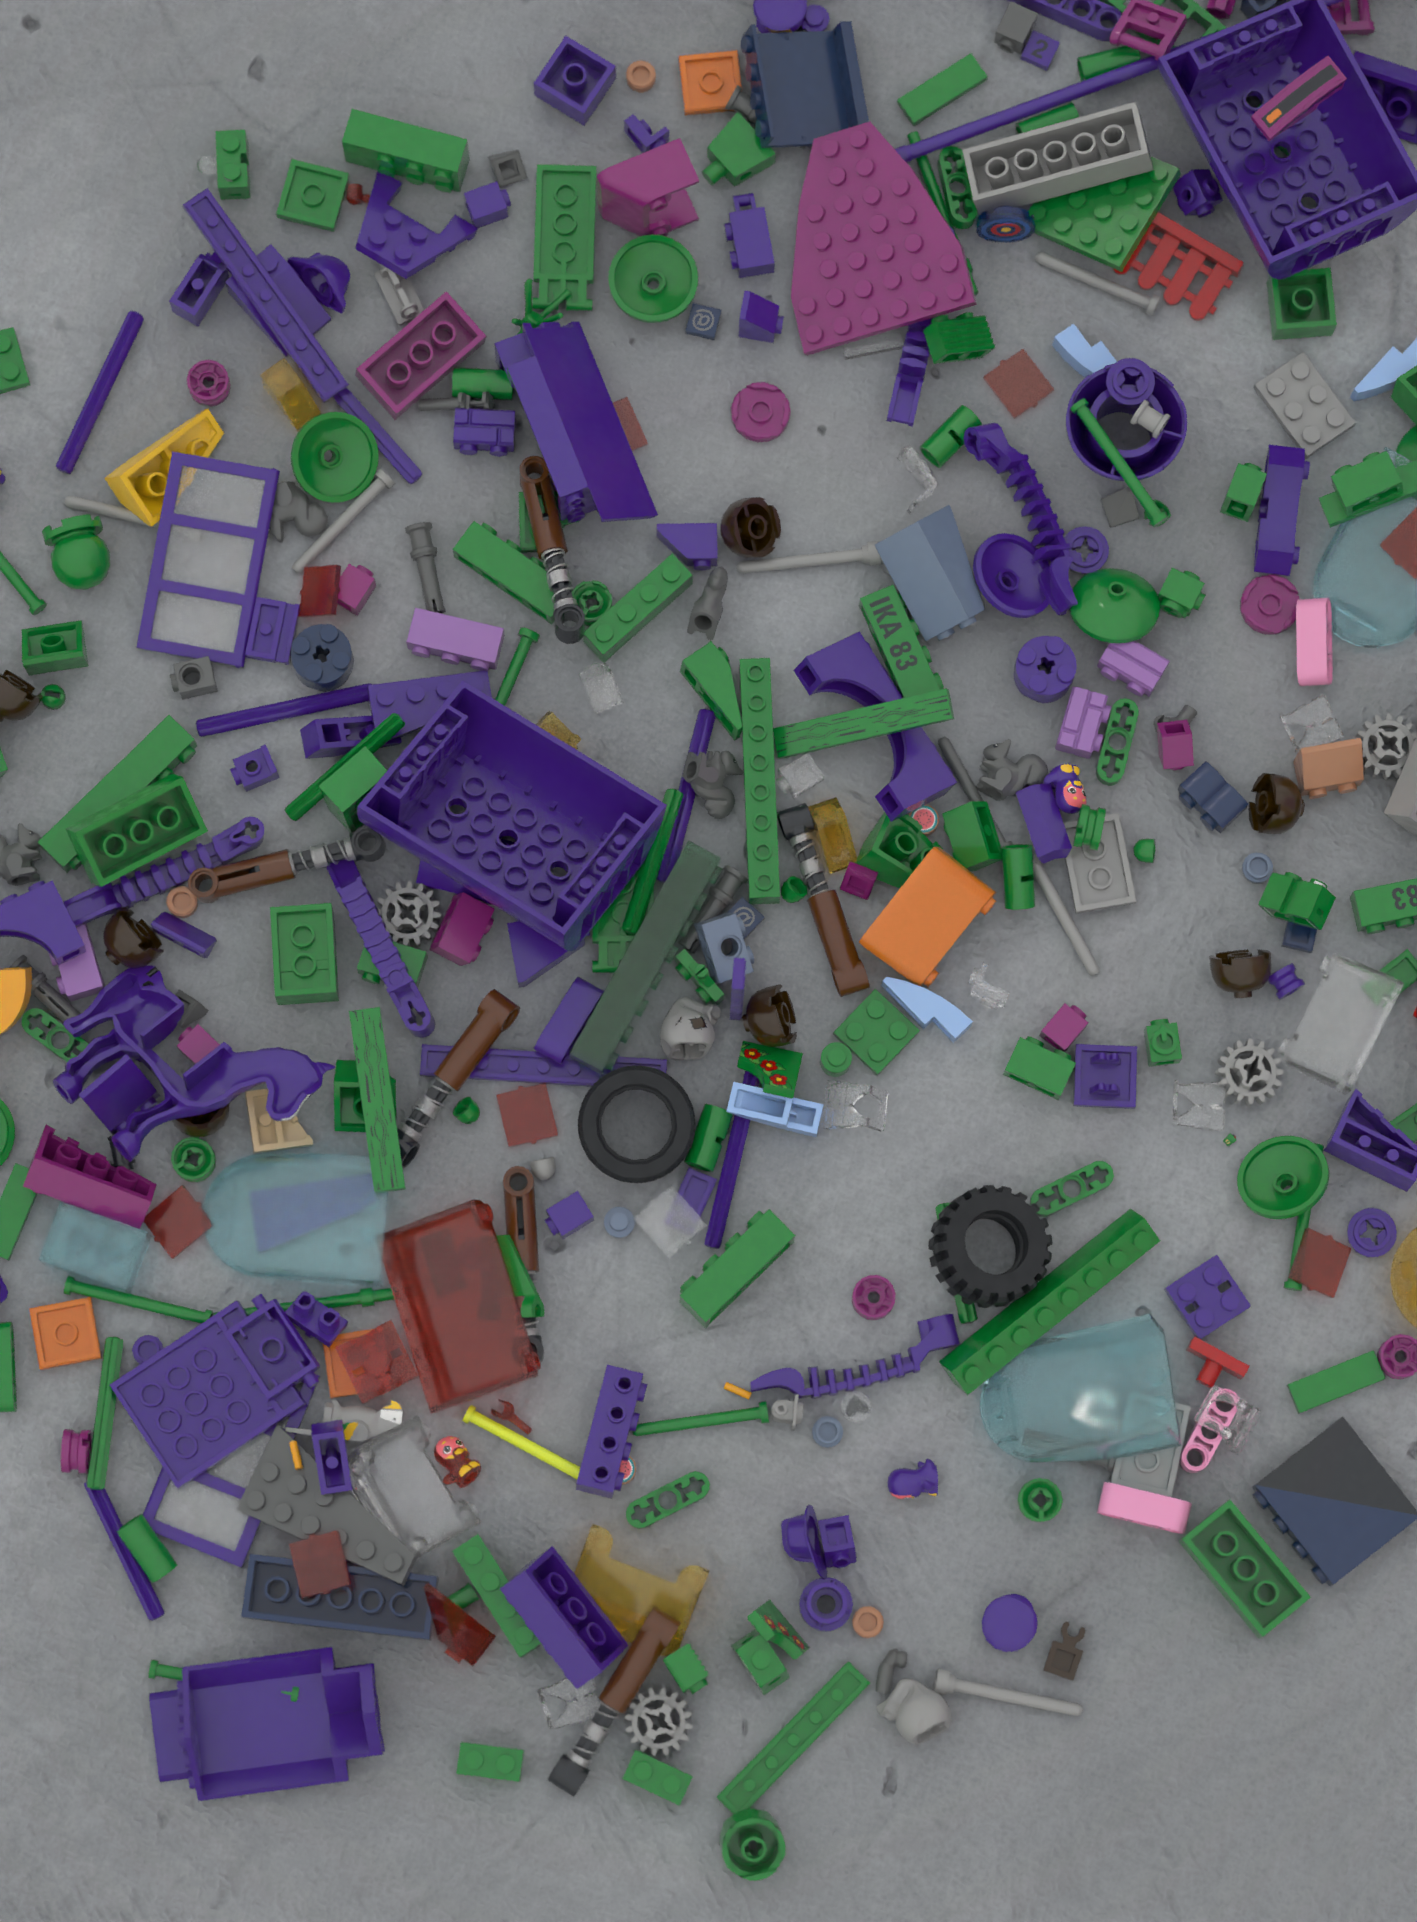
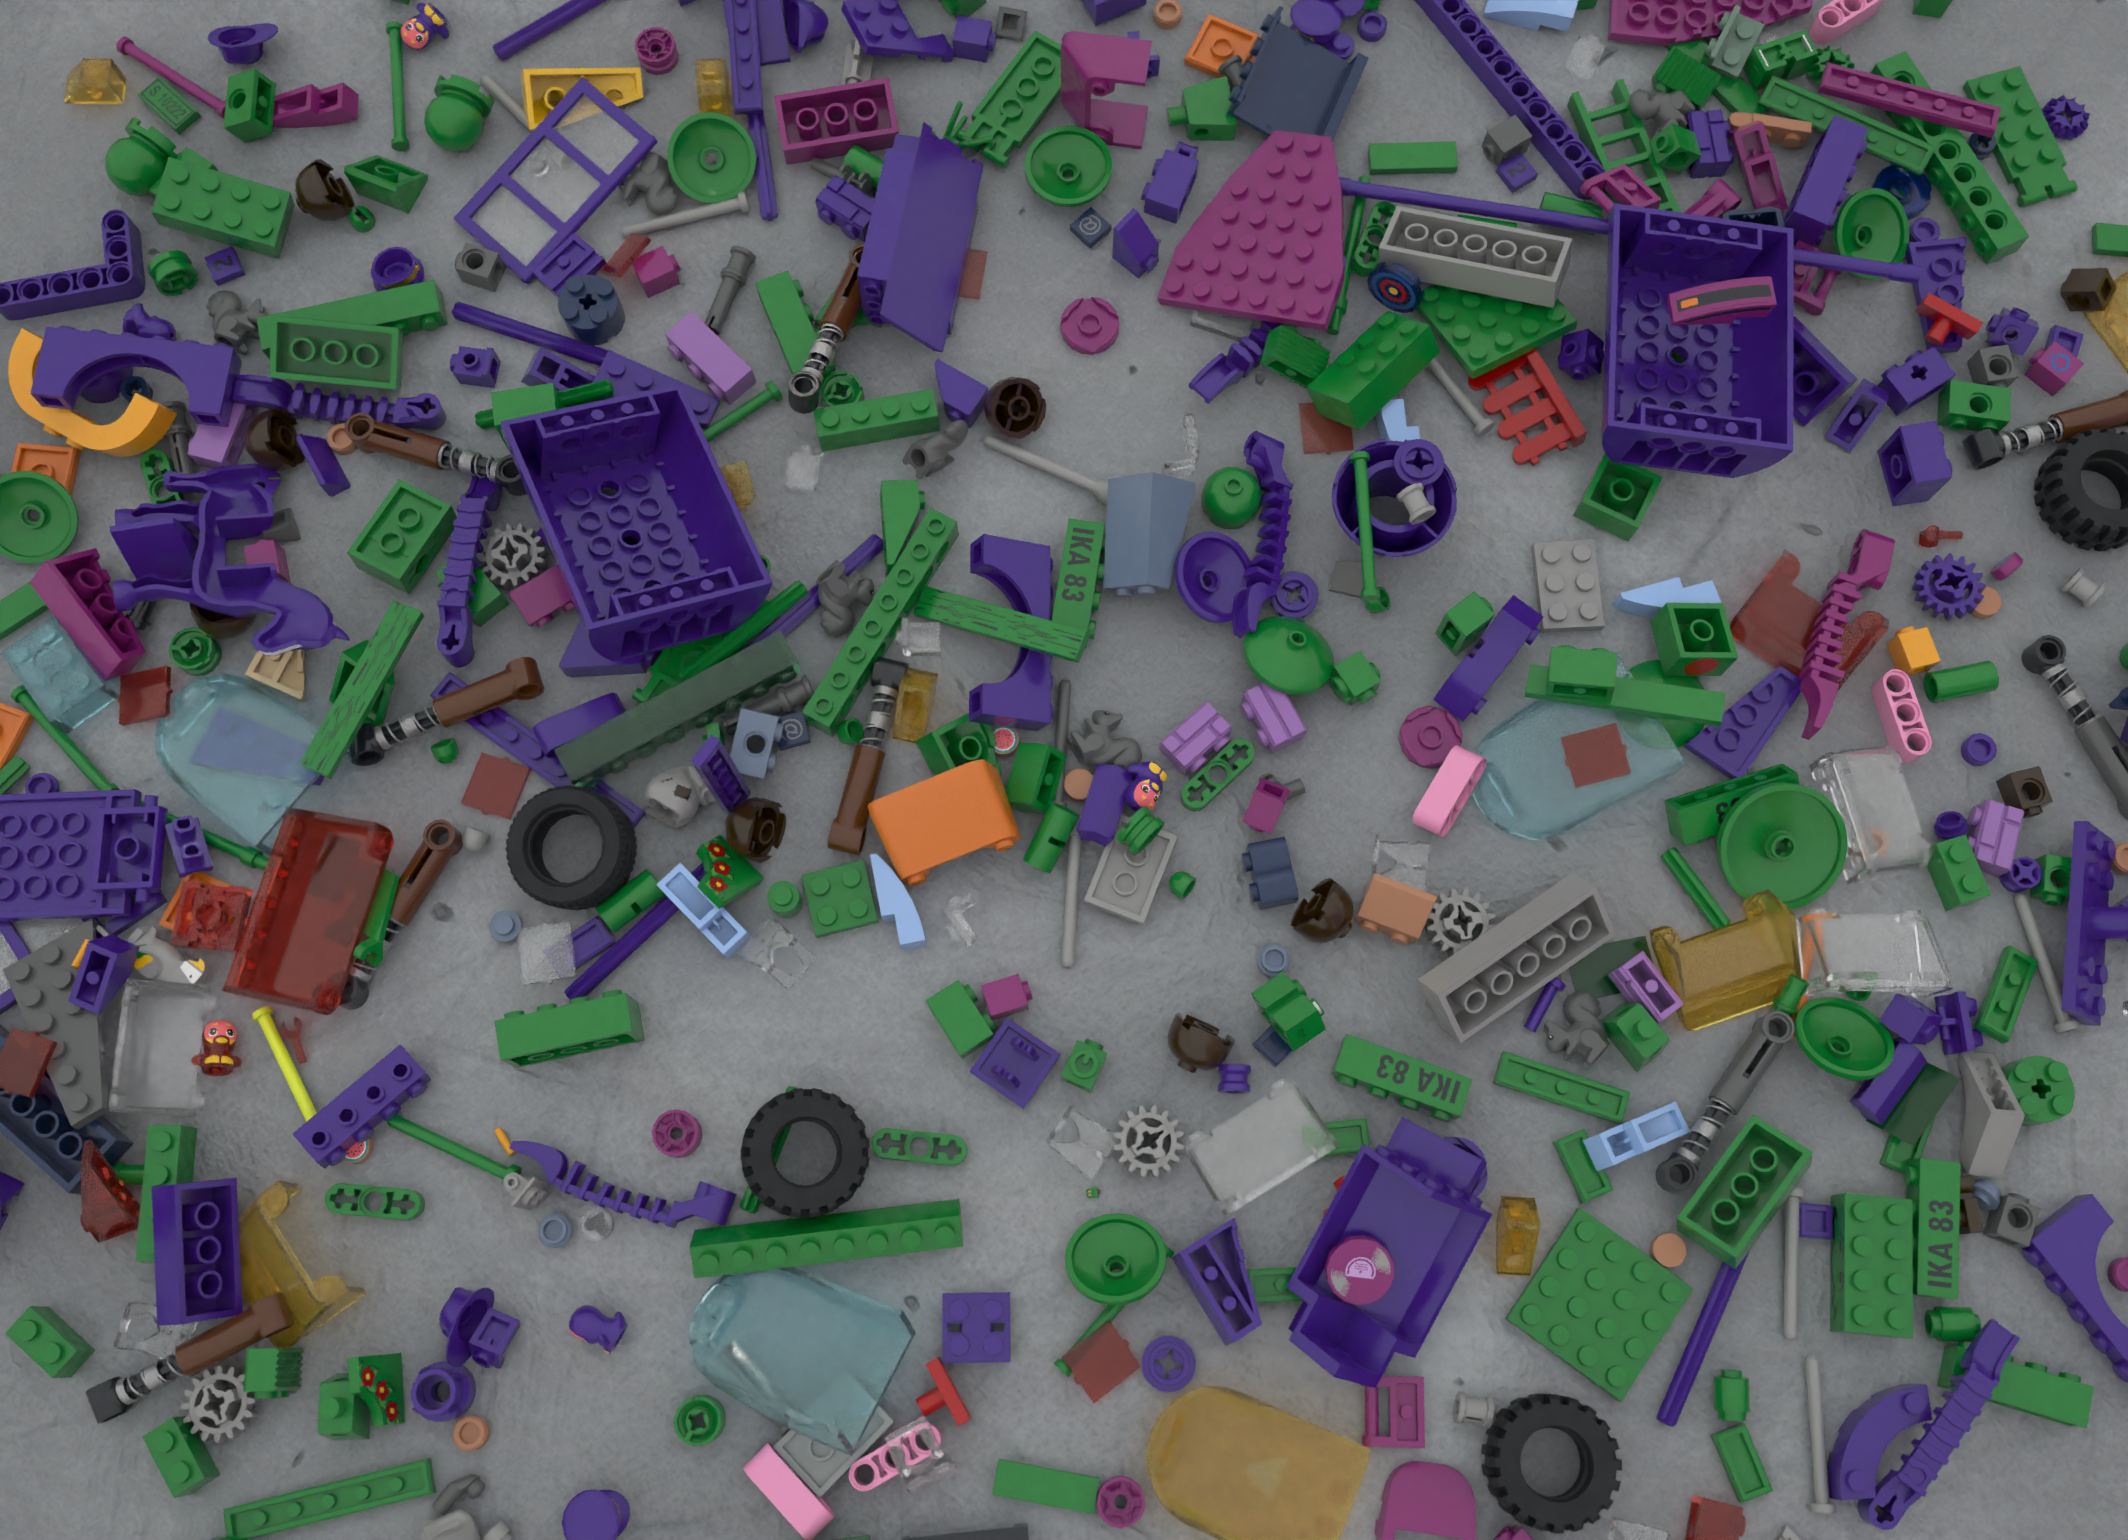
camera: 35 degrees right, 5 degrees down
(122, 727) = (395, 269): none -> dark purple piece
(568, 1216) = (465, 893): dark purple brick -> none
(858, 880) = (910, 757): magenta tile -> none
(949, 436) = (1233, 433): green pin -> none
(979, 496) = (1231, 497): none -> green cylinder
(1010, 819) = (1078, 784): none -> nougat tile
(1033, 313) = (1373, 369): none -> green brick
(1051, 653) = (1192, 656): dark purple brick -> none

